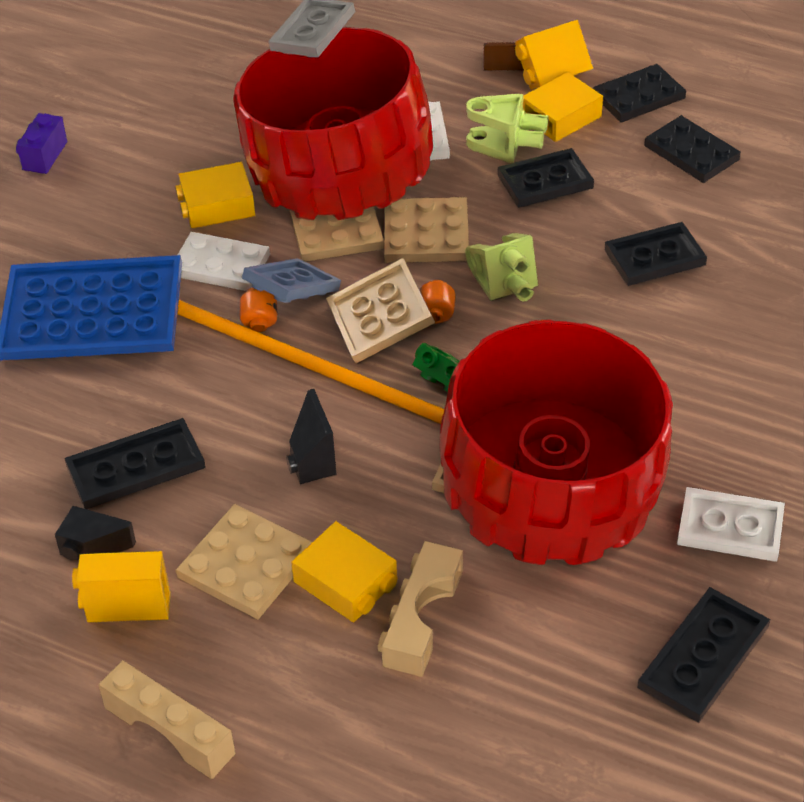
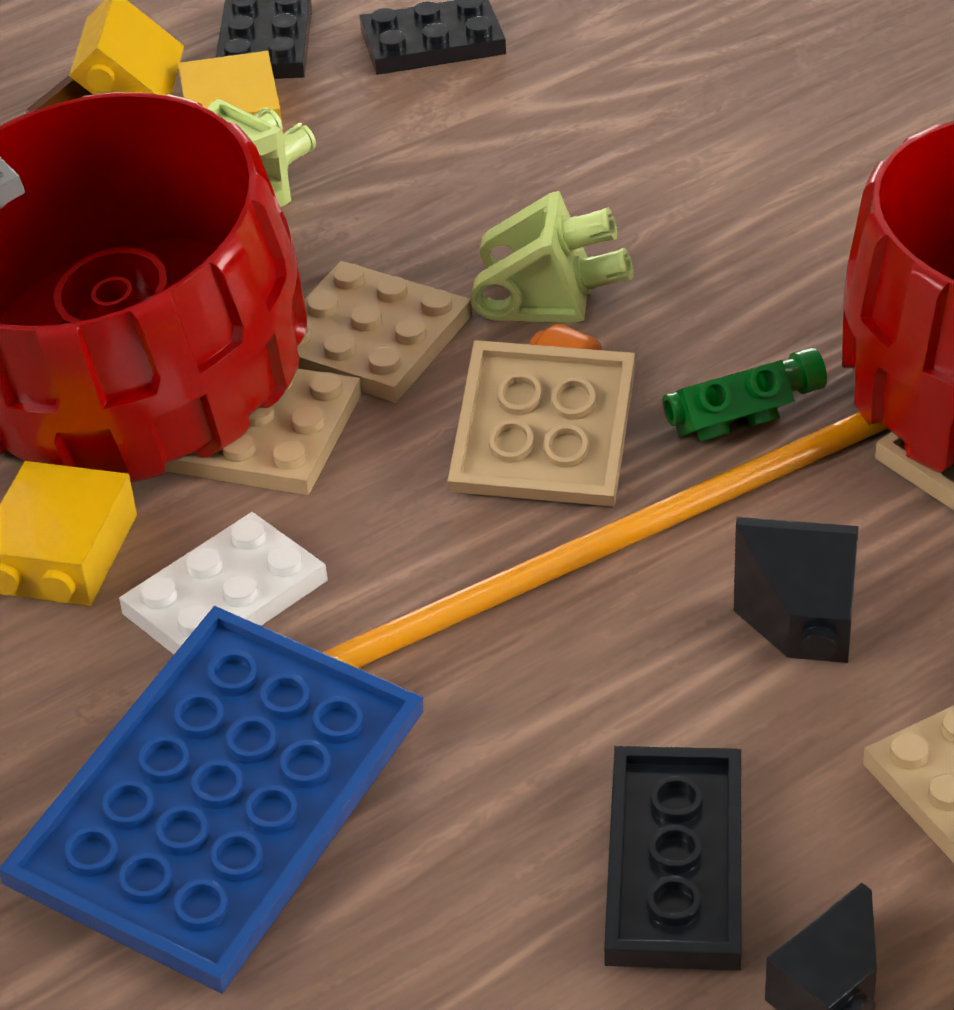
camera: 60 degrees left, 5 degrees down
(258, 309) = (408, 568): orange head -> none
(291, 280) = (392, 493): sand blue plate -> none
(545, 177) = (370, 174): black plate -> none
(655, 253) = (629, 133): black plate -> none

